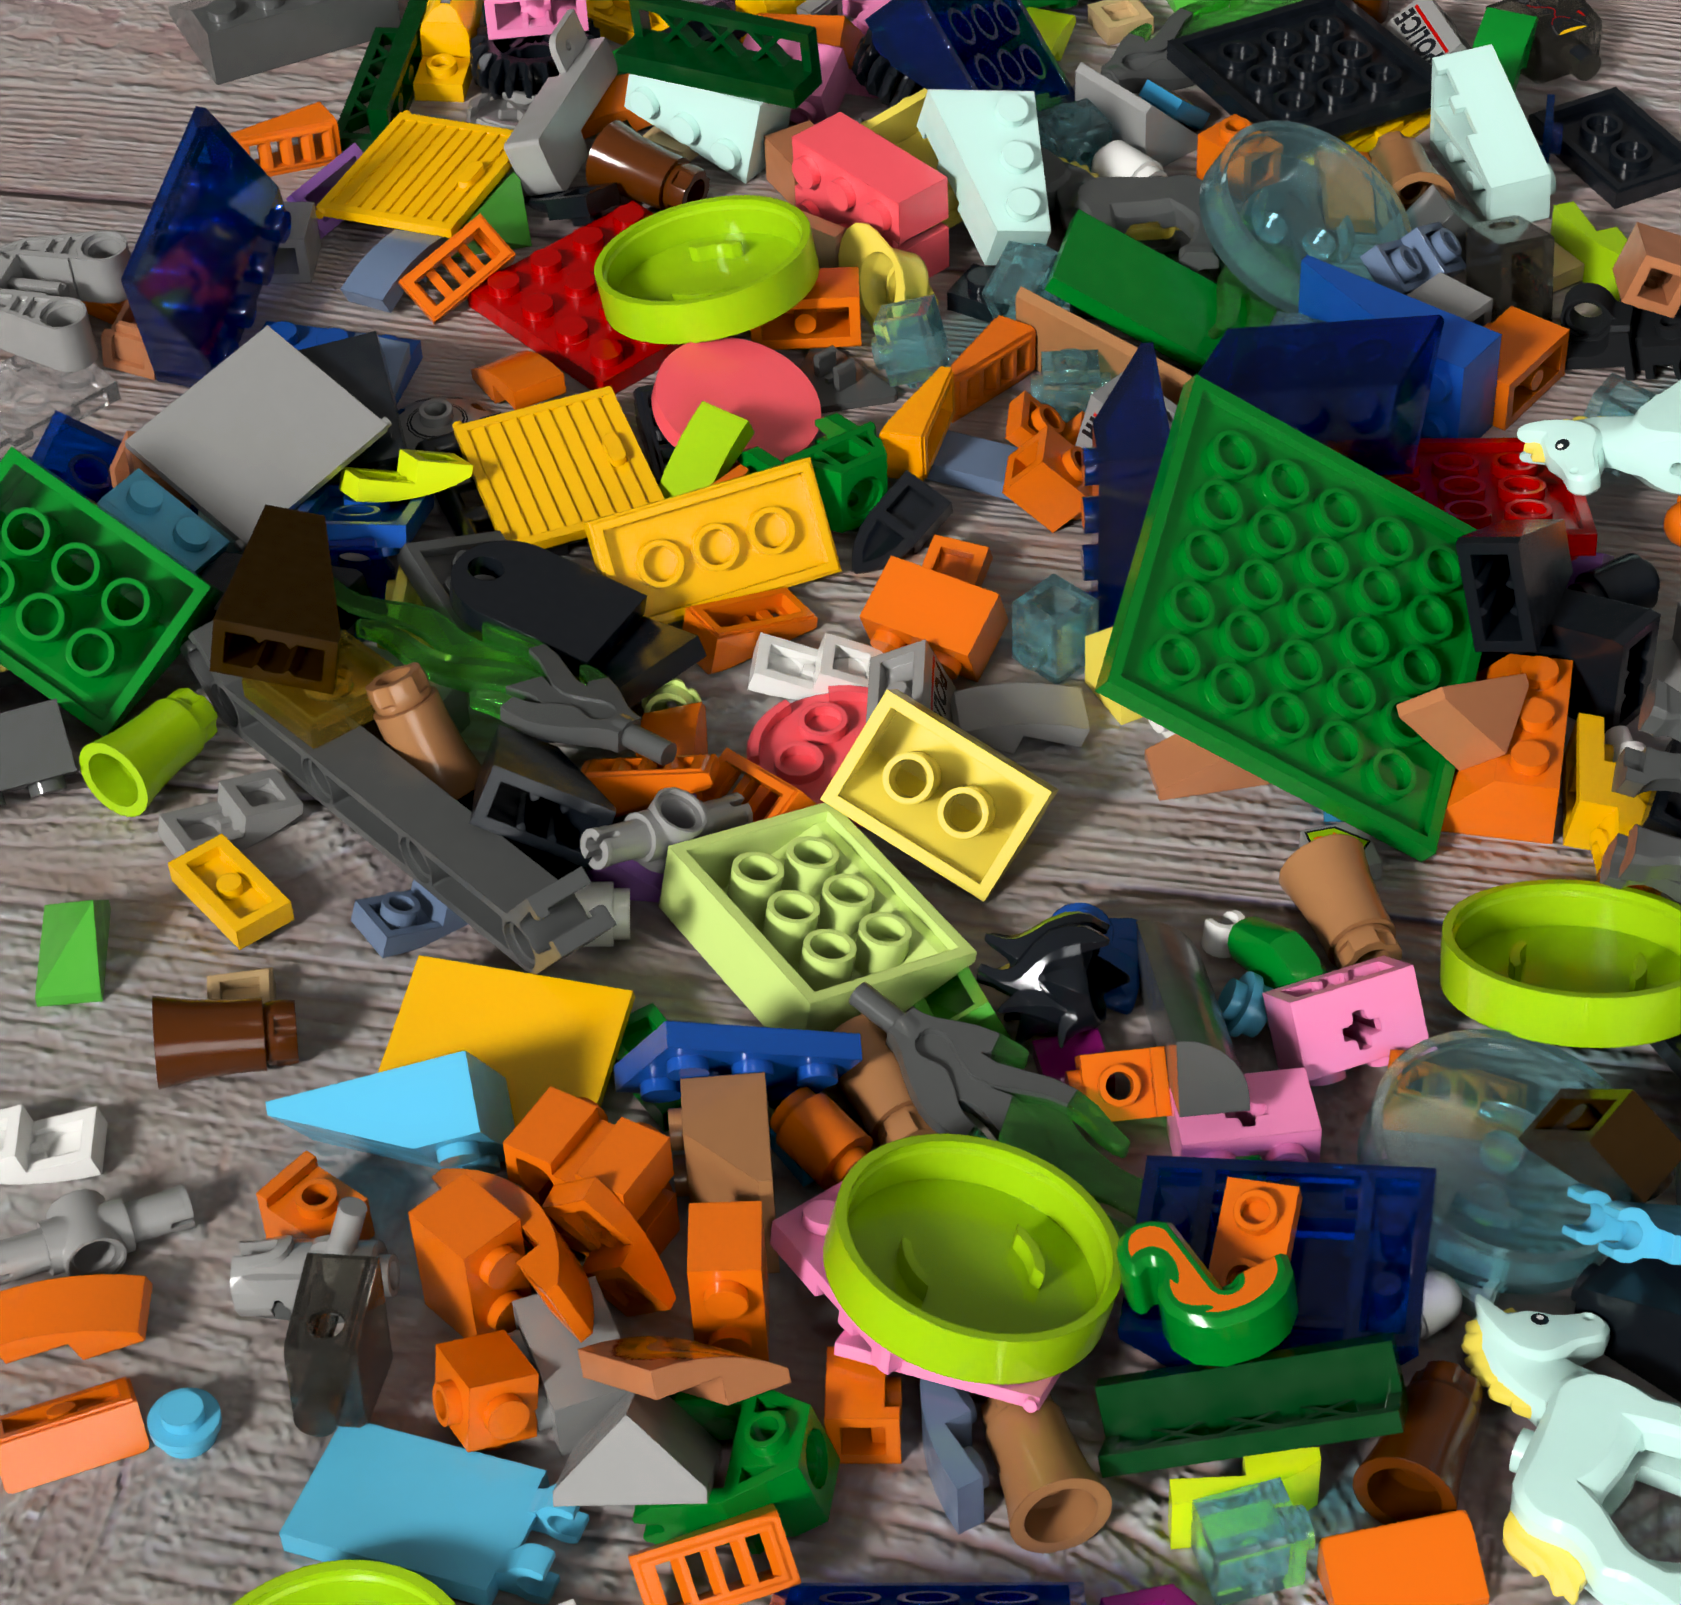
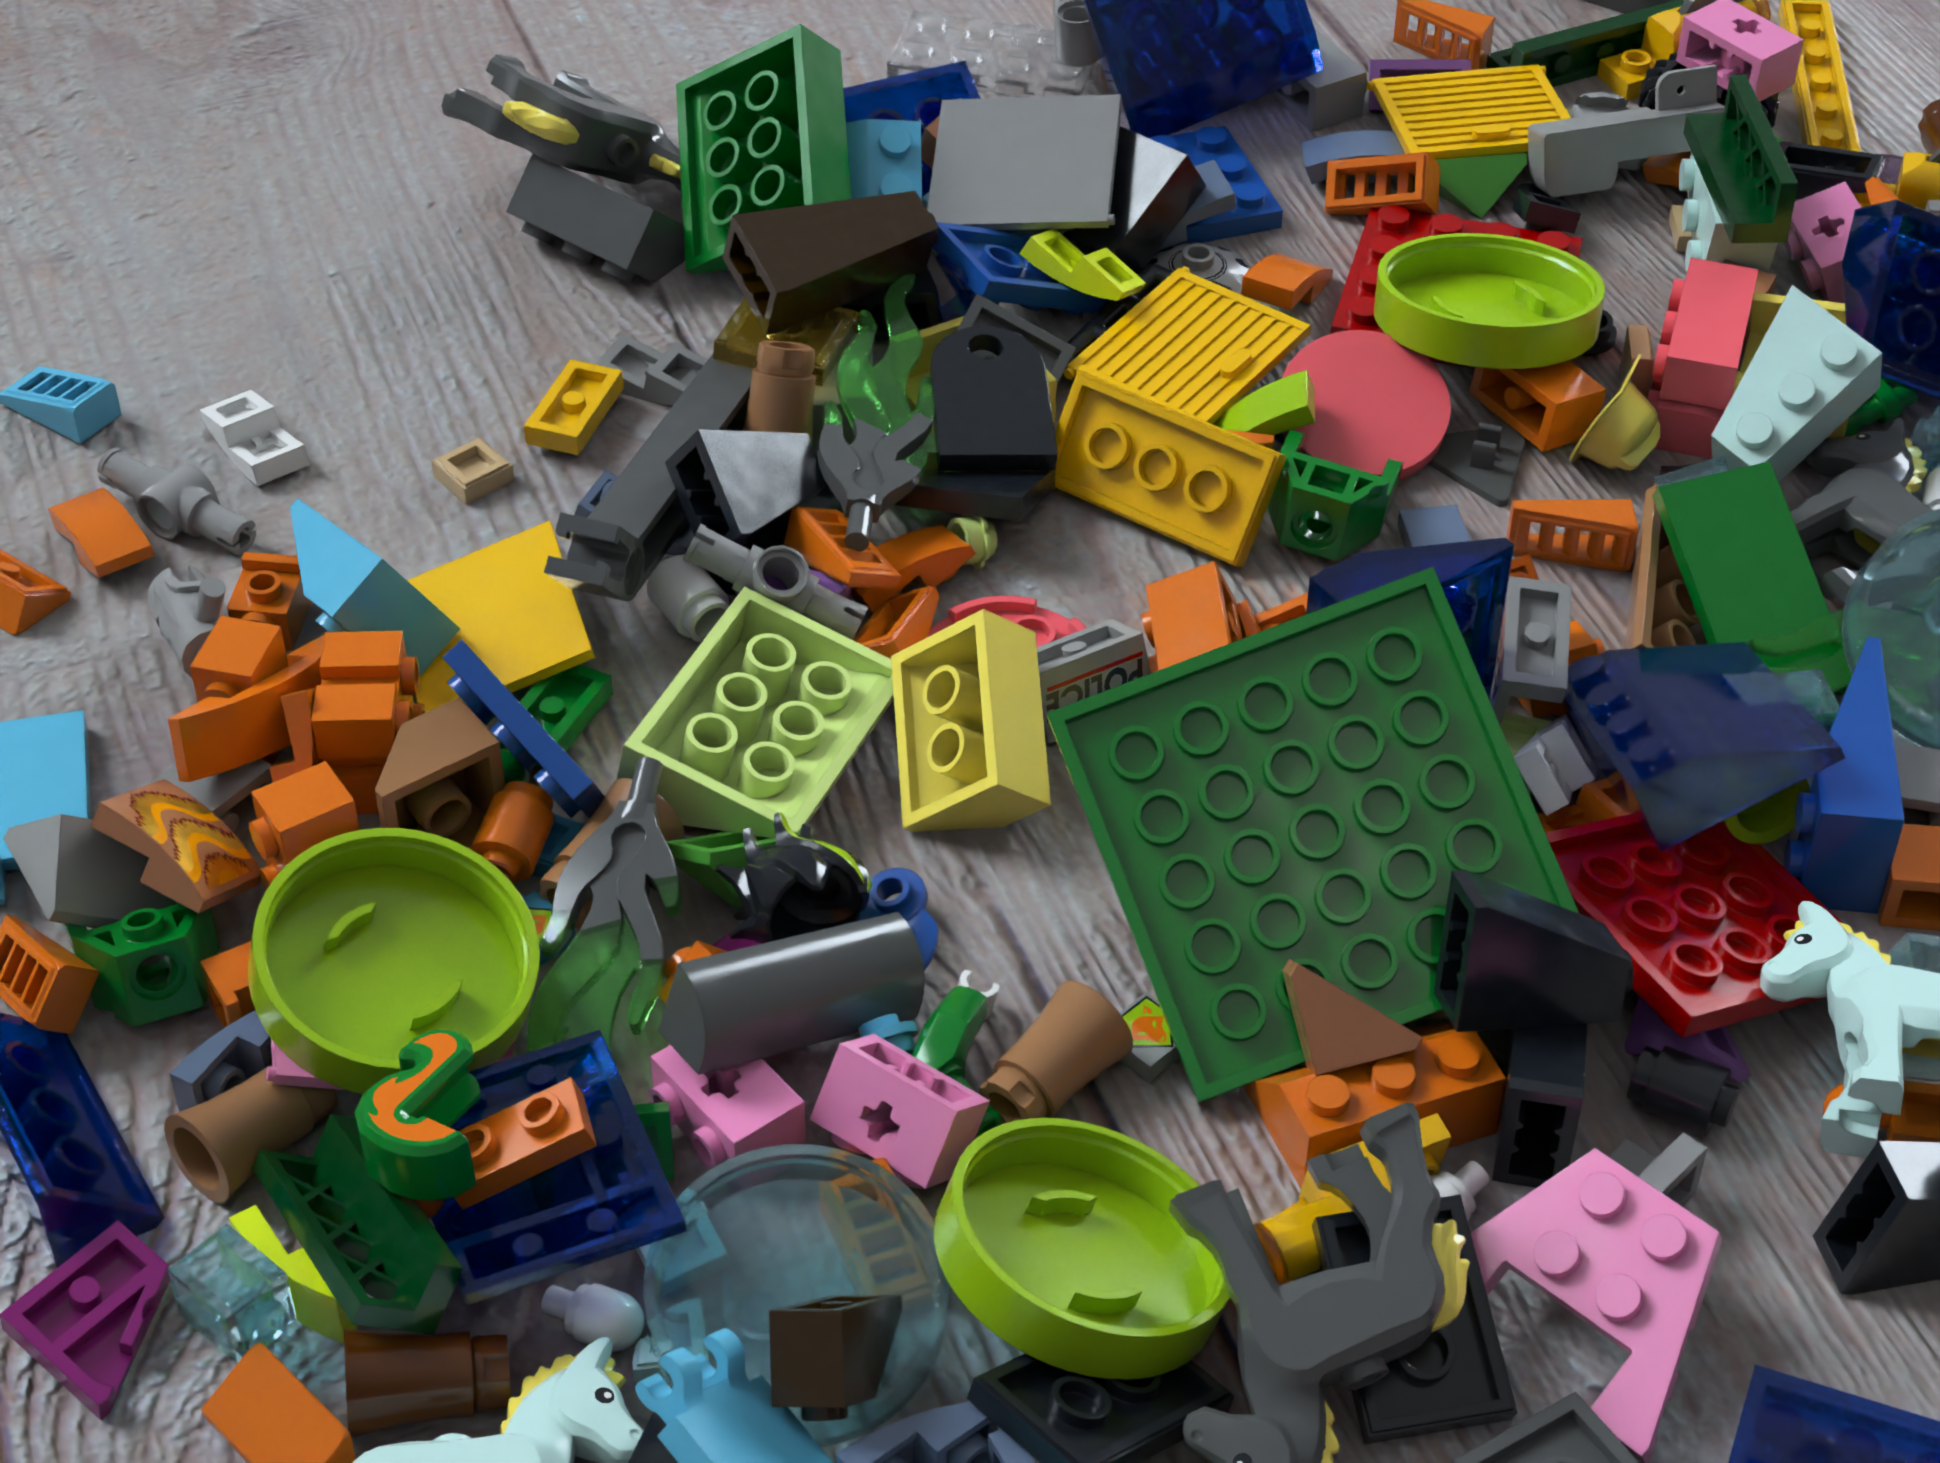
camera: 55 degrees right, 0 degrees up
(73, 953) = (466, 366): bright green slope -> none
(144, 754) = (680, 294): lime plant -> none
(185, 1422) = (37, 636): medium azure plate -> none
(221, 1037) = (404, 464): reddish brown plant -> none
(342, 1375) = (110, 661): clear smoke torso -> none
(485, 1391) = (125, 756): orange brick -> none
(643, 169) = (1618, 220): reddish brown plant -> none
(734, 624) = (1096, 536): orange slope -> none
(801, 671) = (1086, 590): white slope -> none
(899, 523) = (1292, 567): black plate -> none
(910, 341) = (1548, 462): clear light blue brick -> none
(919, 426) = (1401, 509): light orange slope -> none
(1068, 380) = (1600, 590): clear light blue brick -> none

